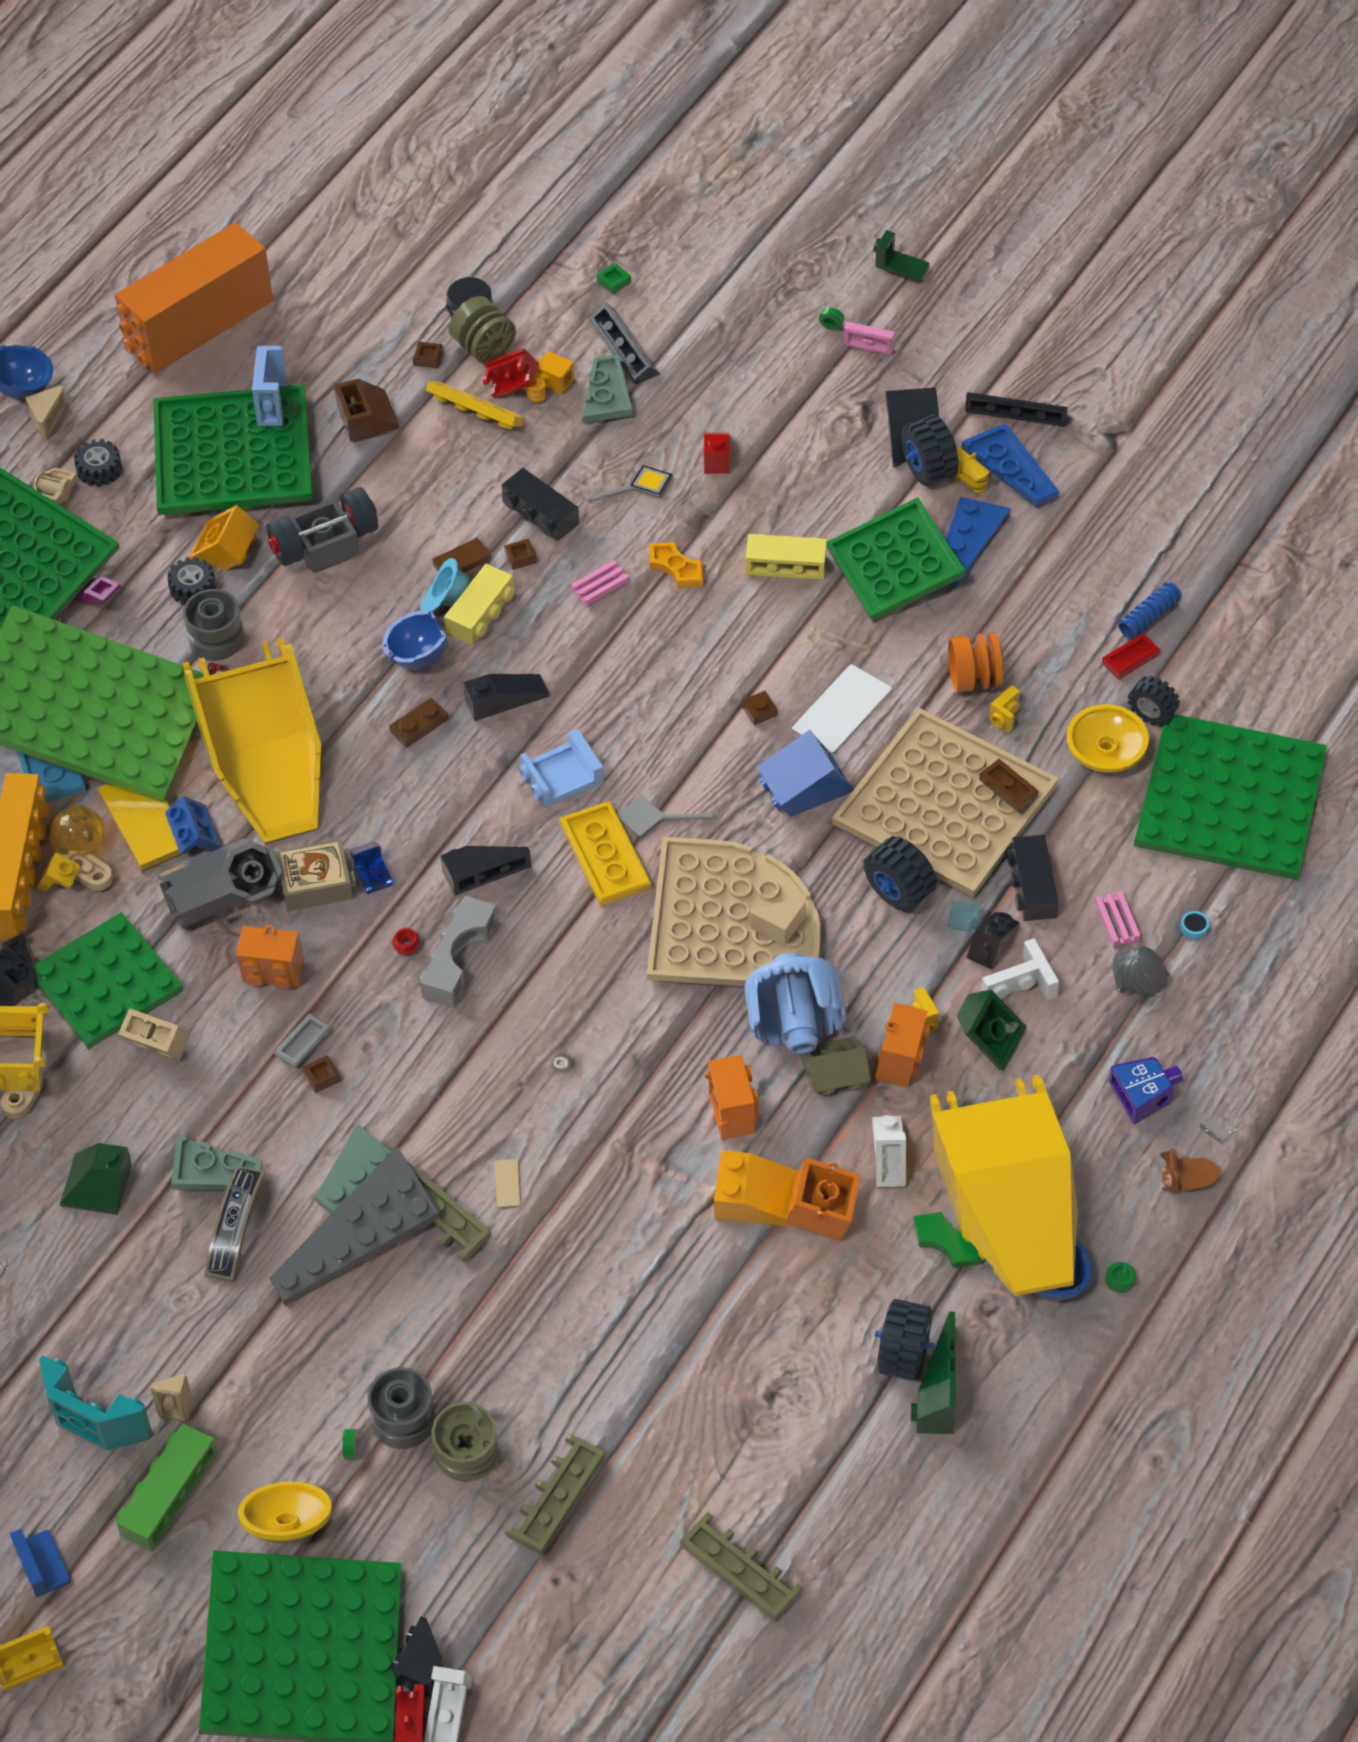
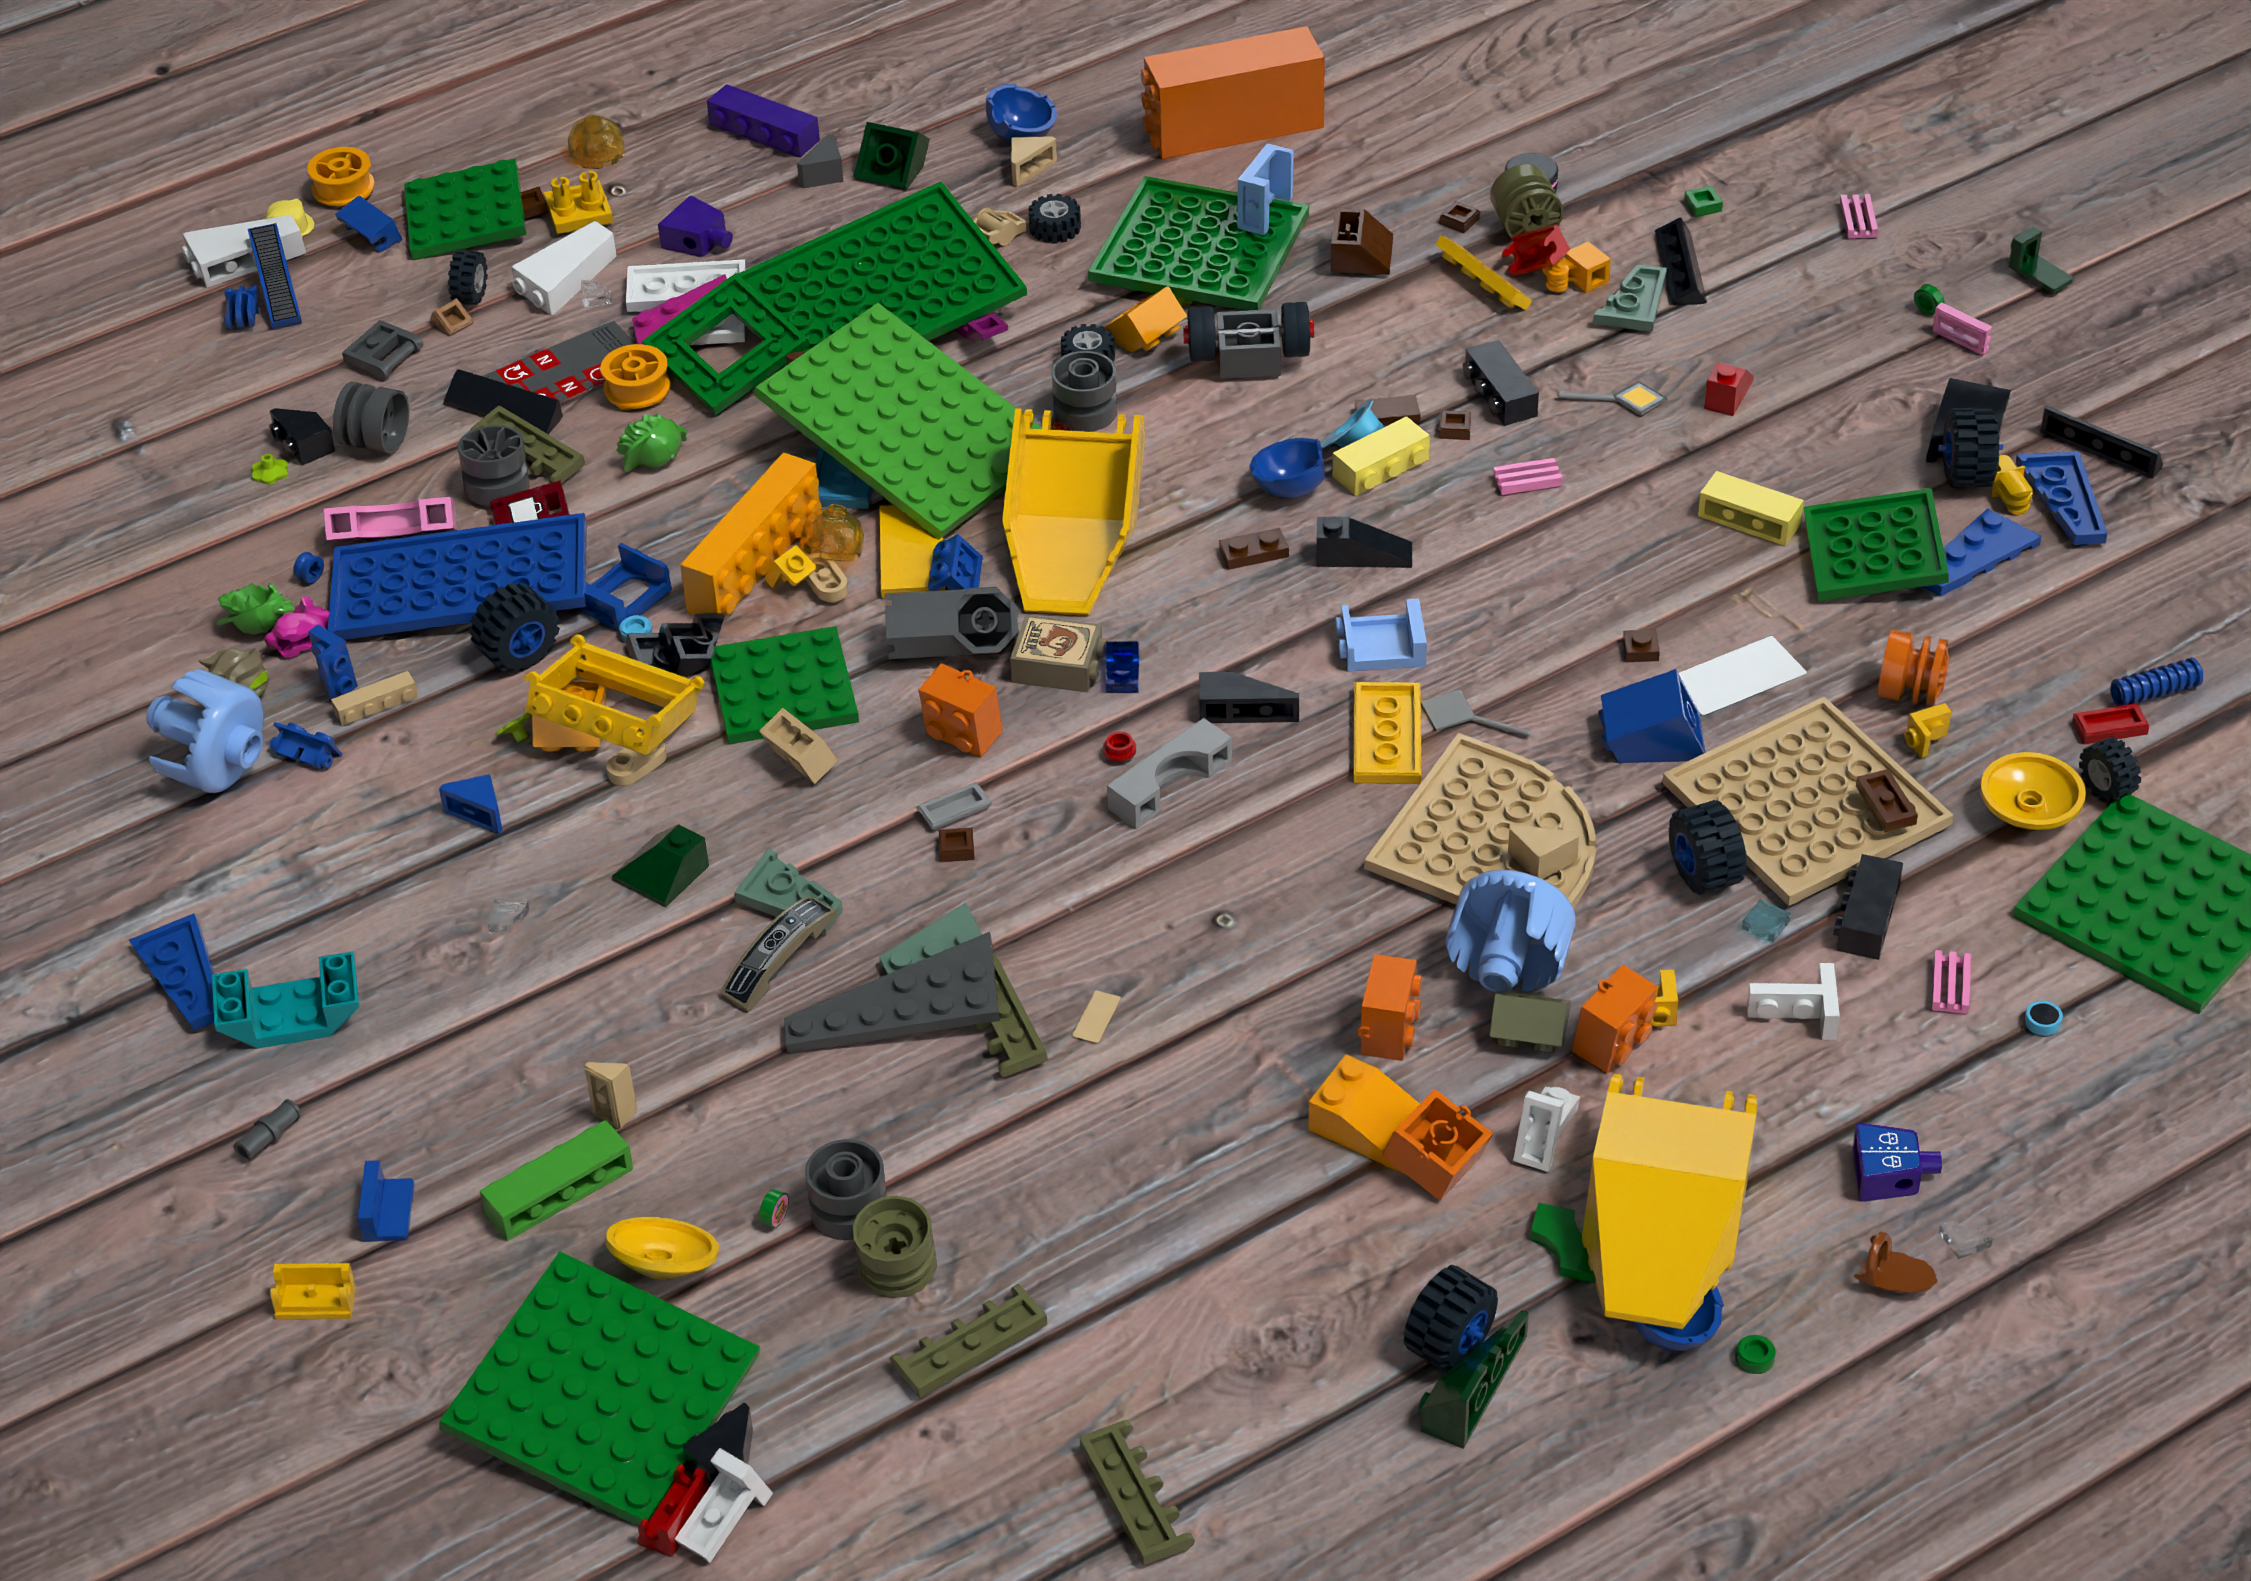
camera: 25 degrees right, 10 degrees down
(119, 1426) = (532, 1097): teal slope -> none
(683, 570) = (1627, 489): light orange tile -> none
(733, 242) = (1857, 203): none -> bright pink tile
(990, 937) = (1779, 949): black bracket -> none
(991, 1026) = (1736, 1040): dark green slope -> none
(1139, 971) = (1948, 1041): dark grey hair -> none

